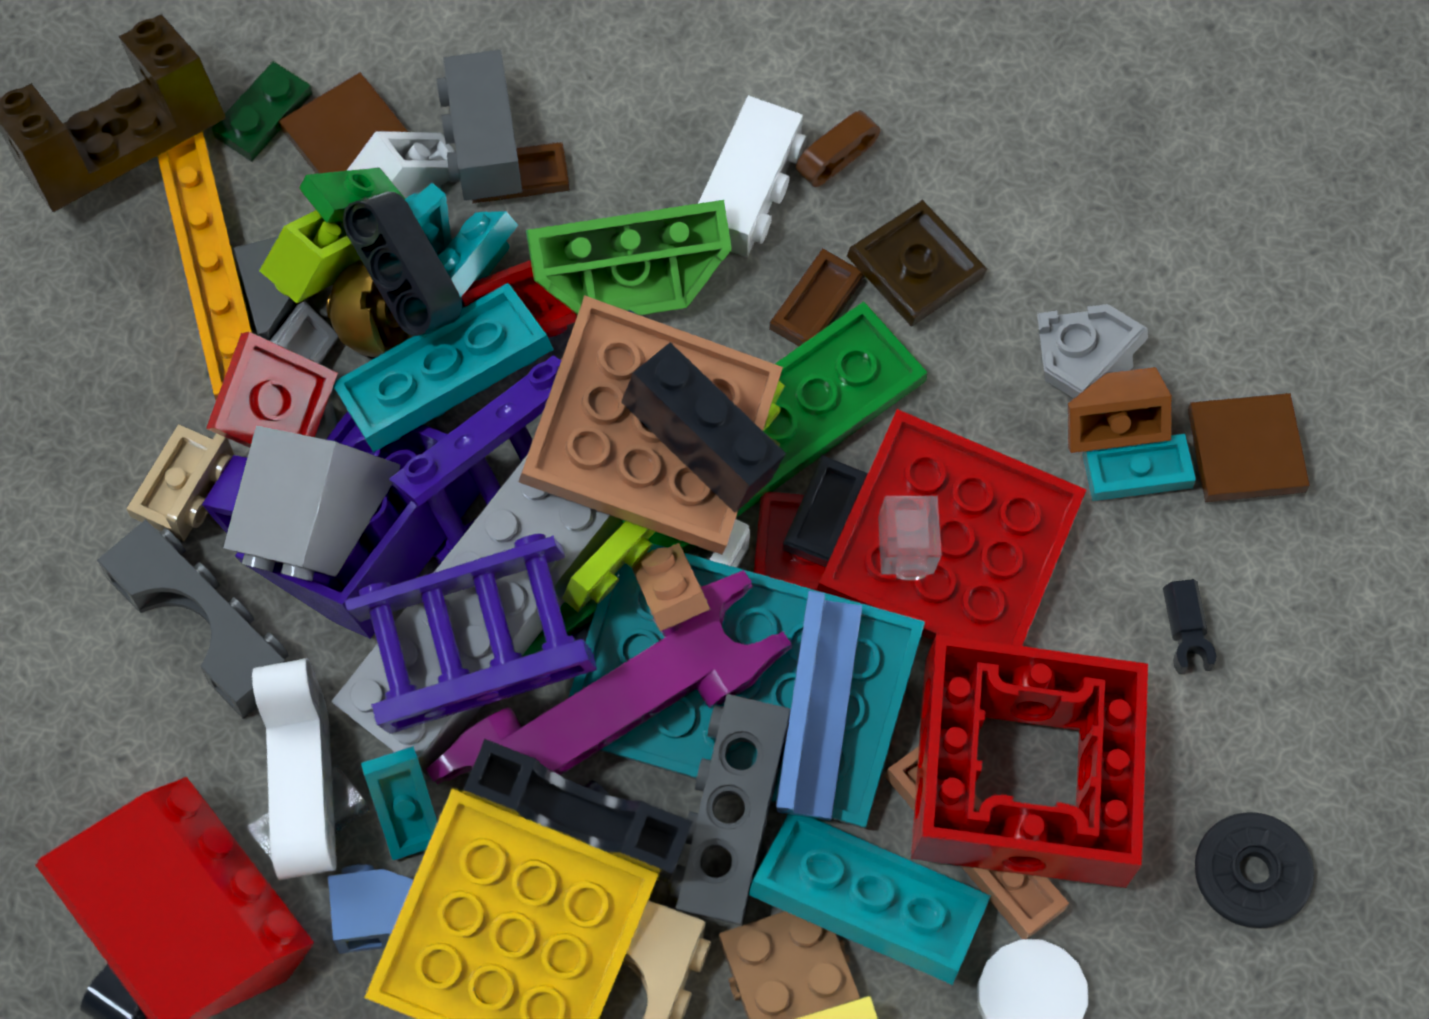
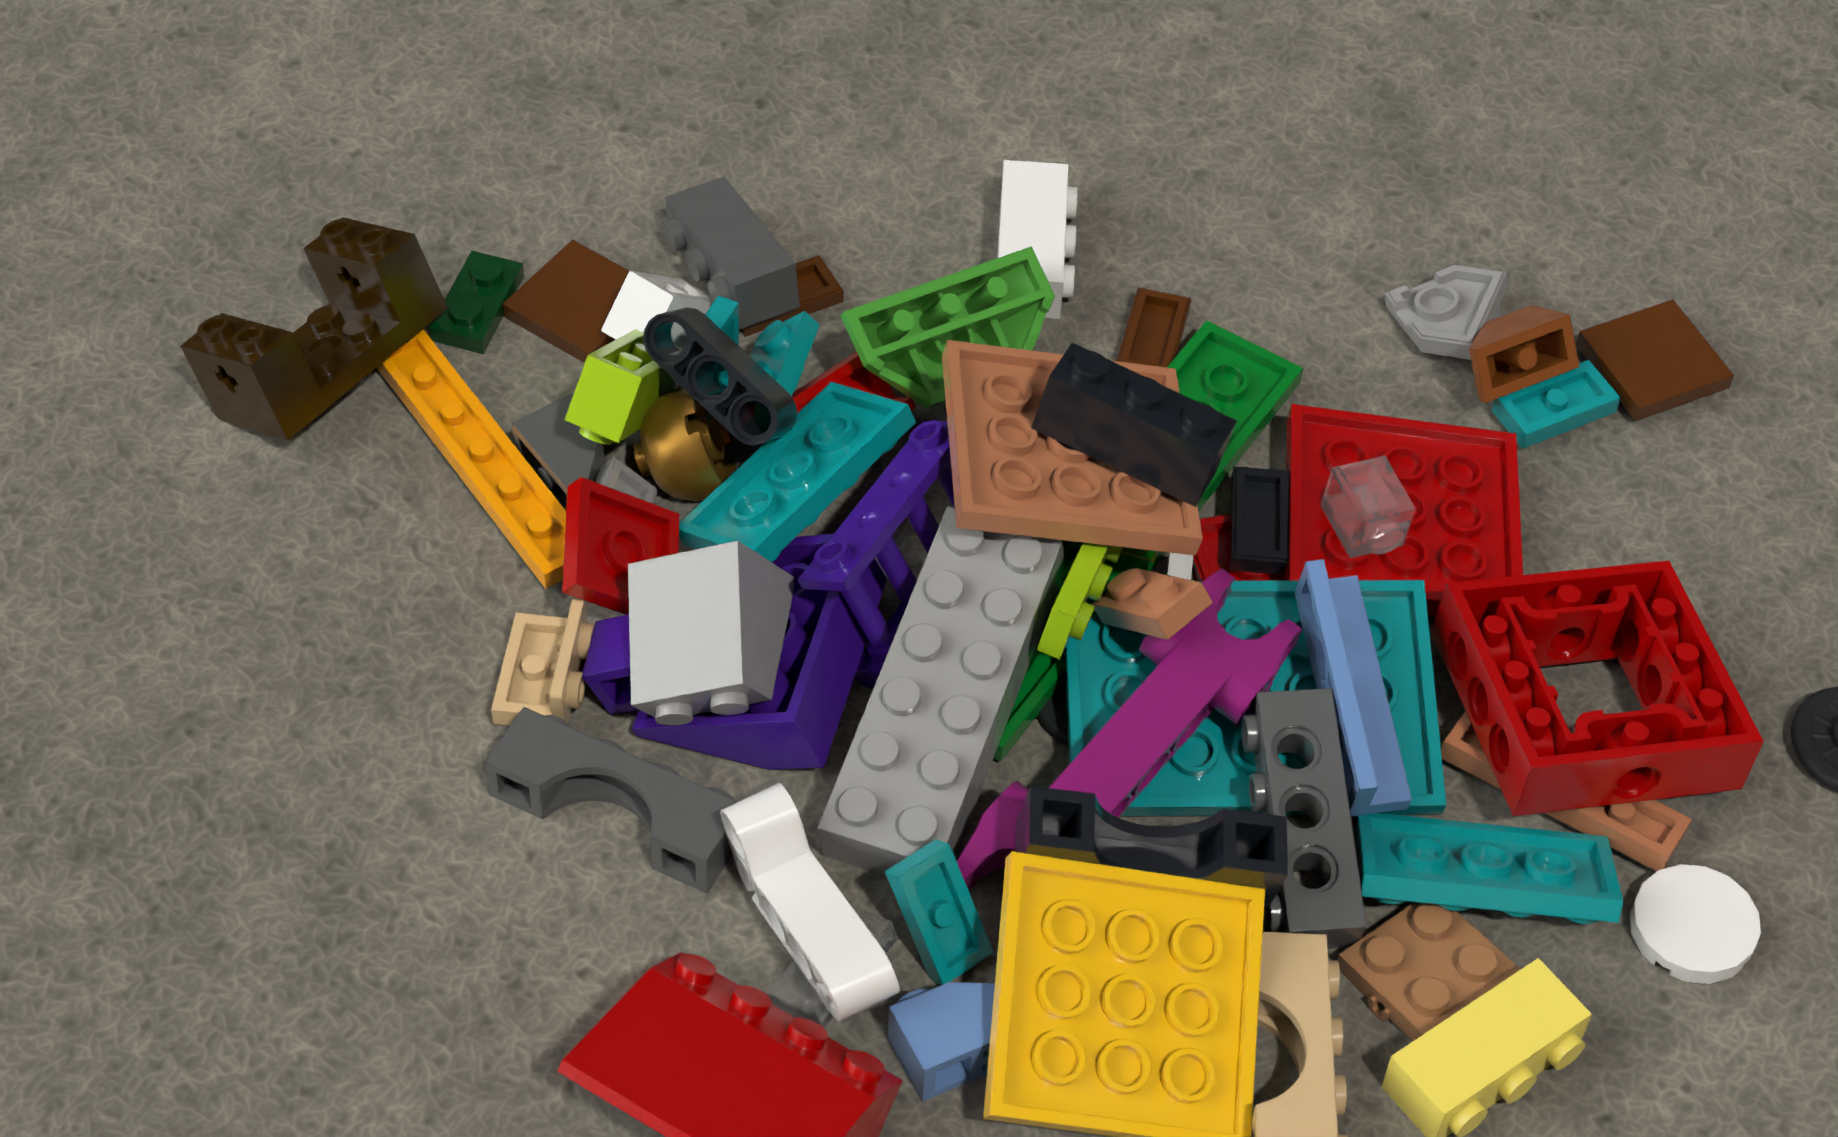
camera: 20 degrees left, 15 degrees down
(334, 191) = (624, 327): green plate -> none
(509, 671) = (968, 757): dark purple fence -> none
(837, 148) = (1111, 194): reddish brown beam -> none
(916, 262) = (1241, 276): dark brown plate -> none
(1188, 624) = (1677, 534): black bar -> none

